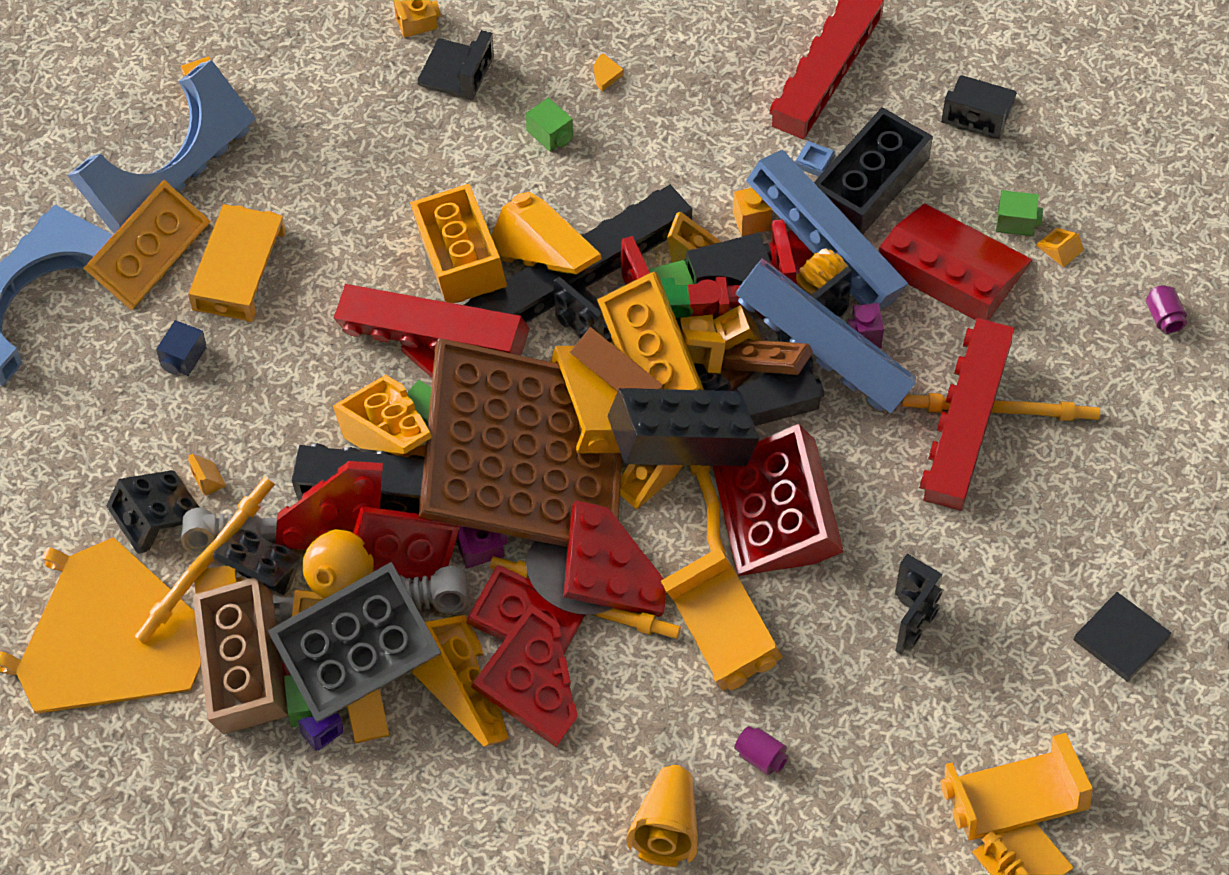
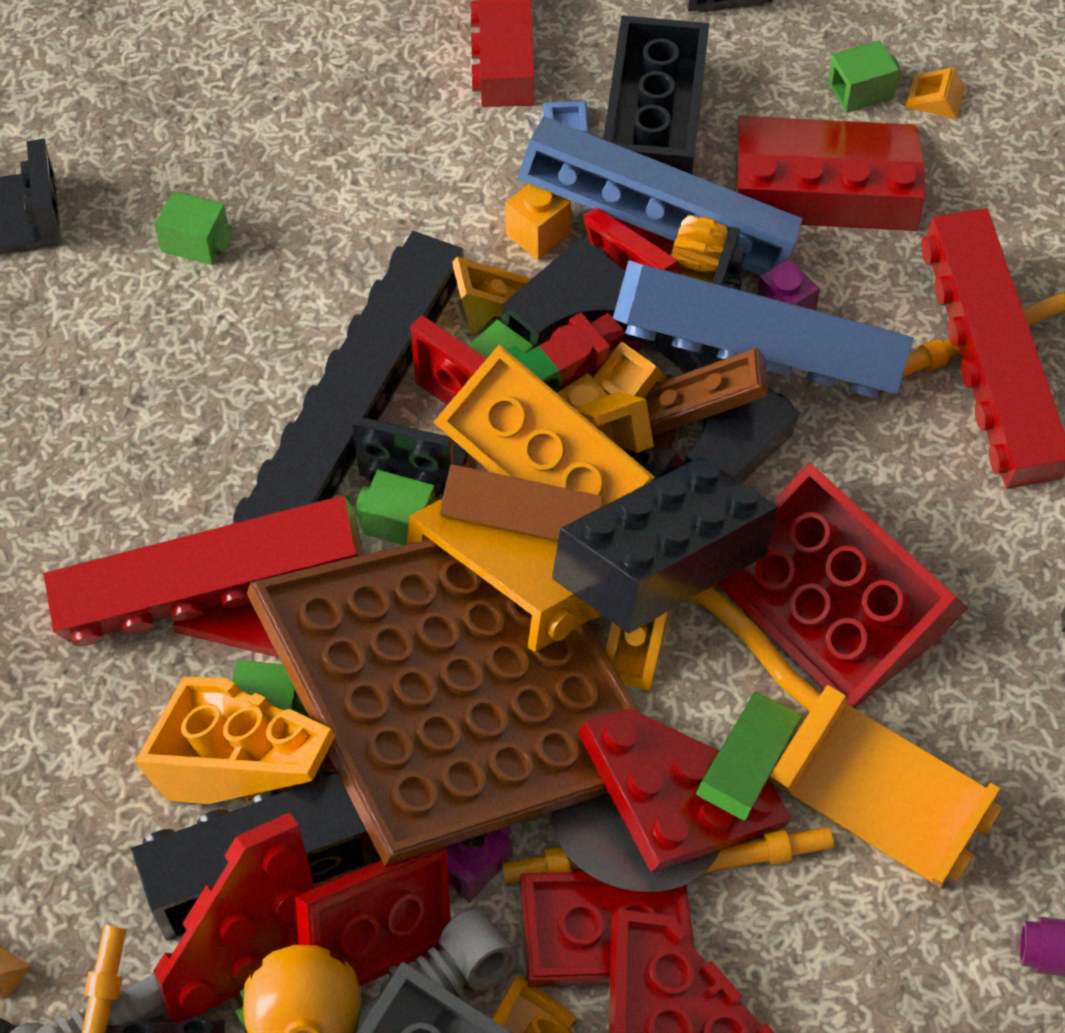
camera: 30 degrees left, 0 degrees up
(458, 244) = (177, 441): light orange brick -> none
(537, 233) = (278, 375): light orange wedge -> none
(556, 333) = (388, 504): none -> bright green brick
(606, 72) = (222, 130): light orange tile -> none
(652, 566) = (748, 755): none -> bright green tile

